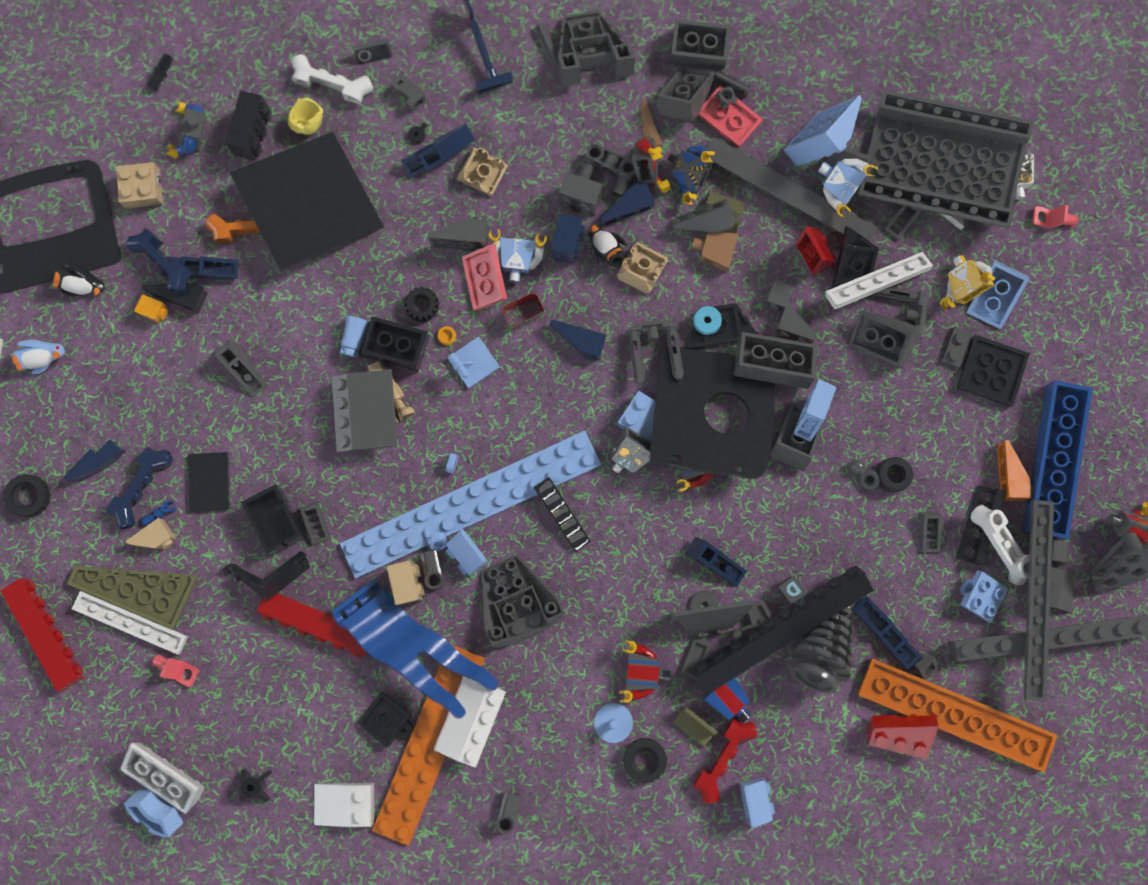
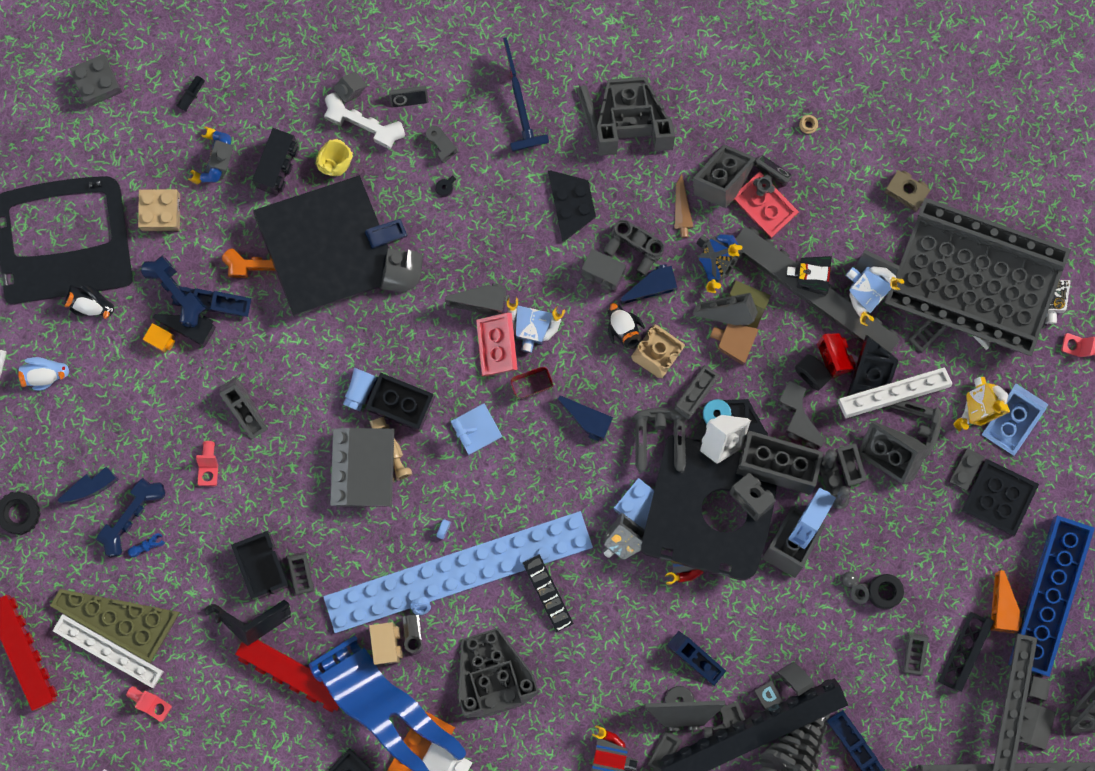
camera: 10 degrees right, 0 degrees up
(65, 68) = (95, 80): none -> dark grey brick
(155, 535) = (140, 568): tan slope -> none
(208, 481) = (199, 519): black tile -> none
(211, 426) = (207, 463): none -> coral bracket
(314, 47) = (350, 87): none -> dark grey brick
(364, 183) = (386, 233): none -> dark blue tile
(383, 216) = (401, 270): none -> dark grey brick
(419, 293) = (430, 352): black tyre -> none
(438, 151) = (467, 208): dark blue slope -> none
(446, 335) = (452, 398): light orange tile -> none
(466, 553) = (448, 621): light blue slope -> none
(482, 171) = (506, 233): tan slope -> none
(542, 135) = (572, 203): none -> black wing
(567, 238) = (584, 315): dark blue brick -> none
(646, 162) = (674, 244): torso -> none
(685, 302) = (696, 392): none -> dark grey tile
(700, 44) = (744, 127): dark grey brick -> none
(718, 341) = (724, 437): none -> white slope
(754, 404) = (753, 506): none -> dark grey brick
(761, 31) = (808, 118): none -> tan plate
(785, 174) = (812, 274): none -> torso
(796, 269) = (813, 372): none -> black tyre
(818, 569) = (796, 678): none -> dark grey slope
(824, 133) = (857, 237): light blue slope -> none
(827, 371) = (833, 481): none -> dark grey piece
(838, 346) = (846, 458): none -> dark grey brick
(869, 96) = (911, 200): none -> dark tan brick
(983, 596) = (958, 723): light blue plate -> none
(993, 524) = (976, 654): white plate -> none

